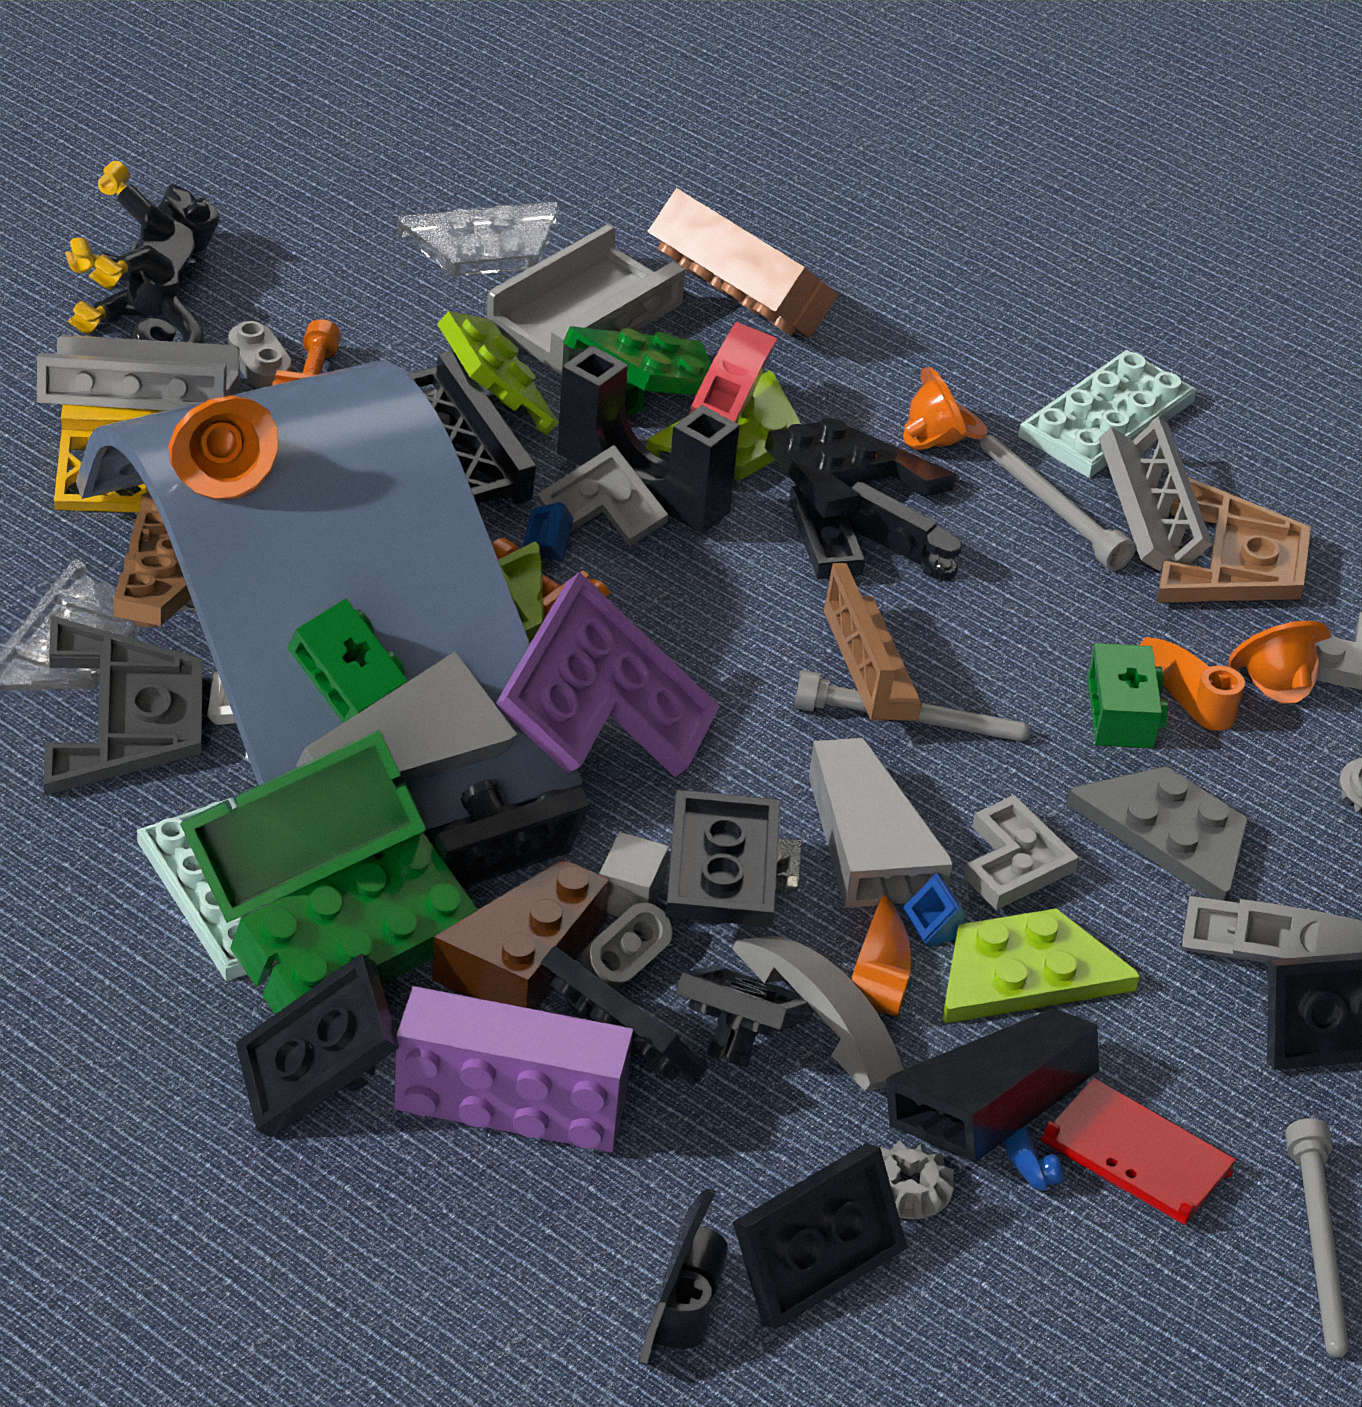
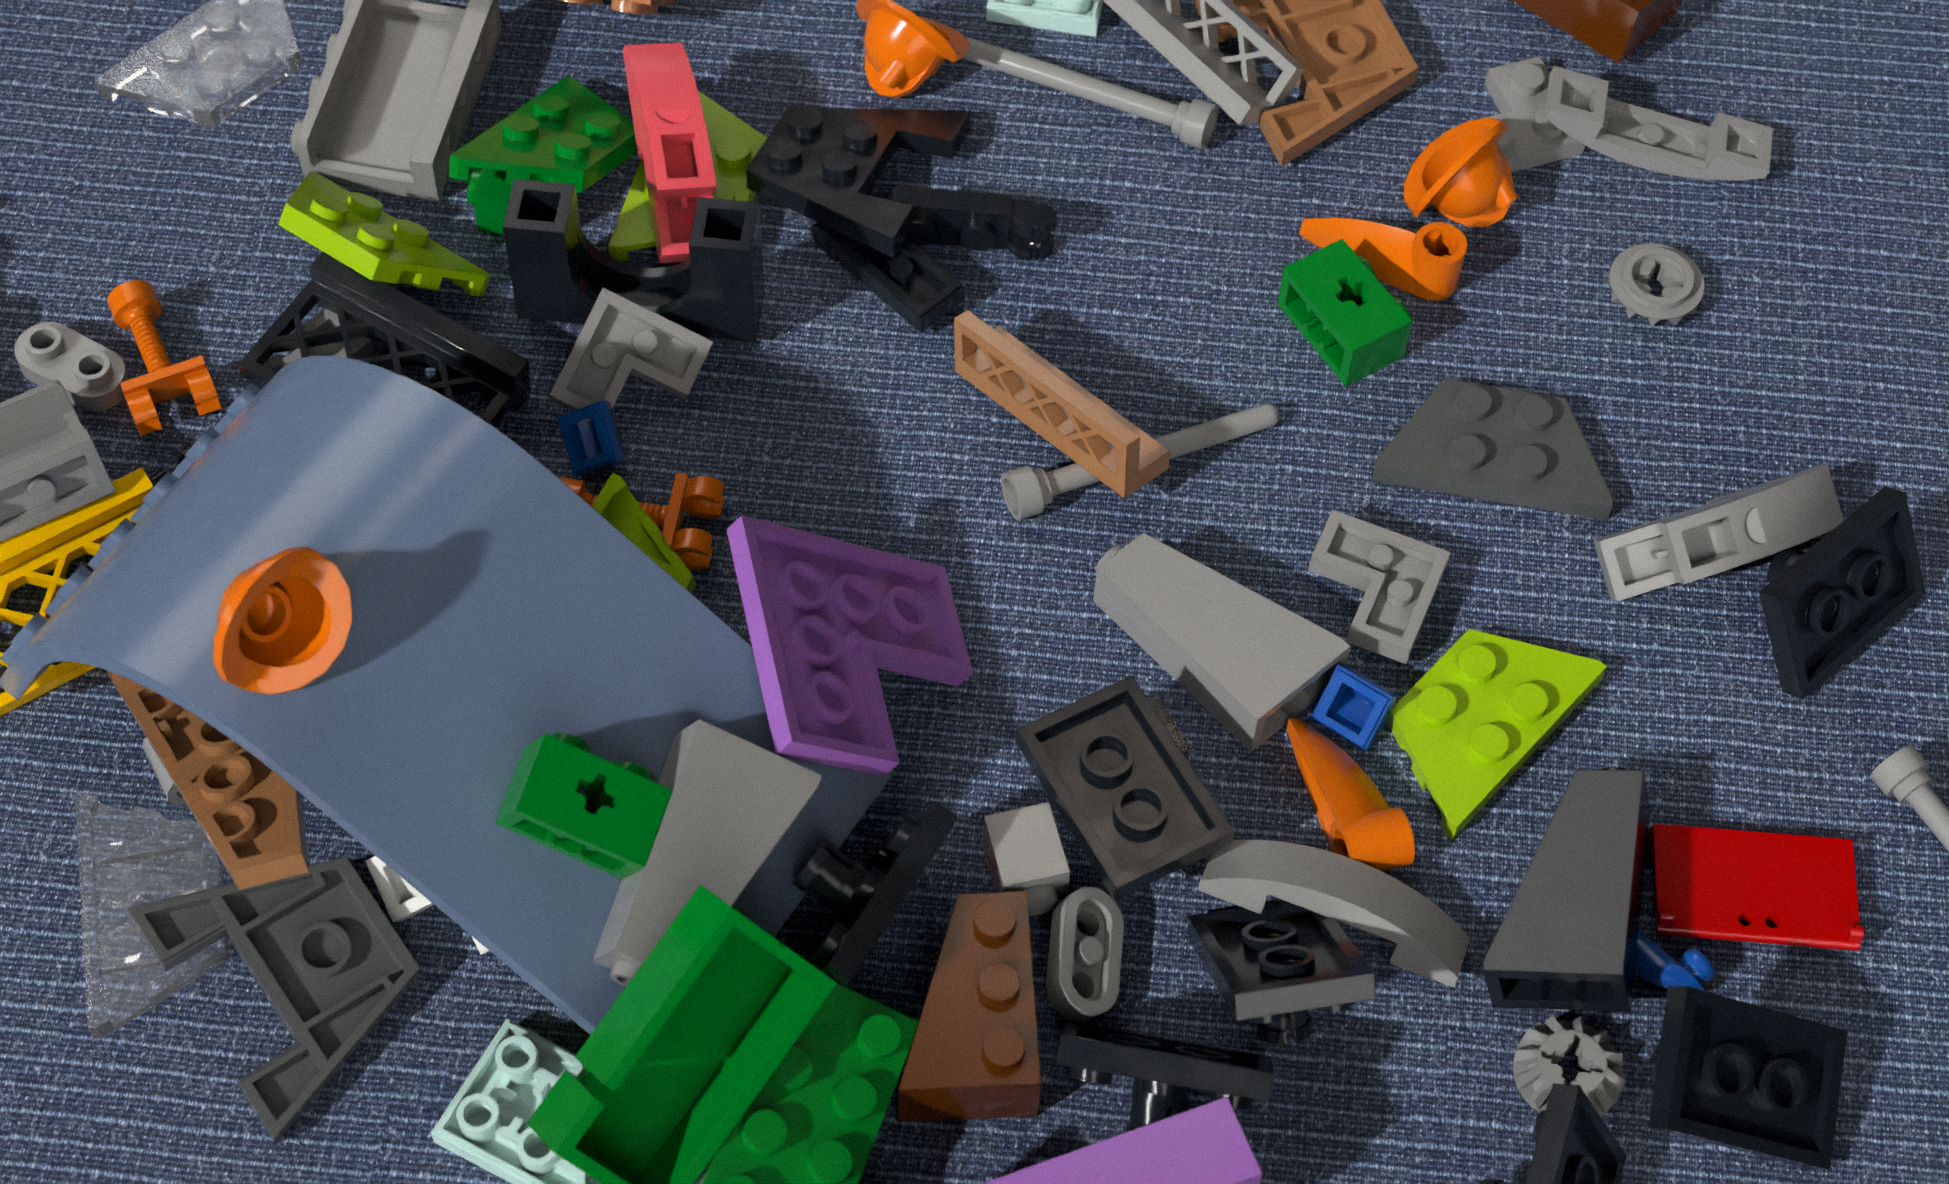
camera: 30 degrees left, 15 degrees up
(1018, 1226) = (1748, 1078): none -> black plate

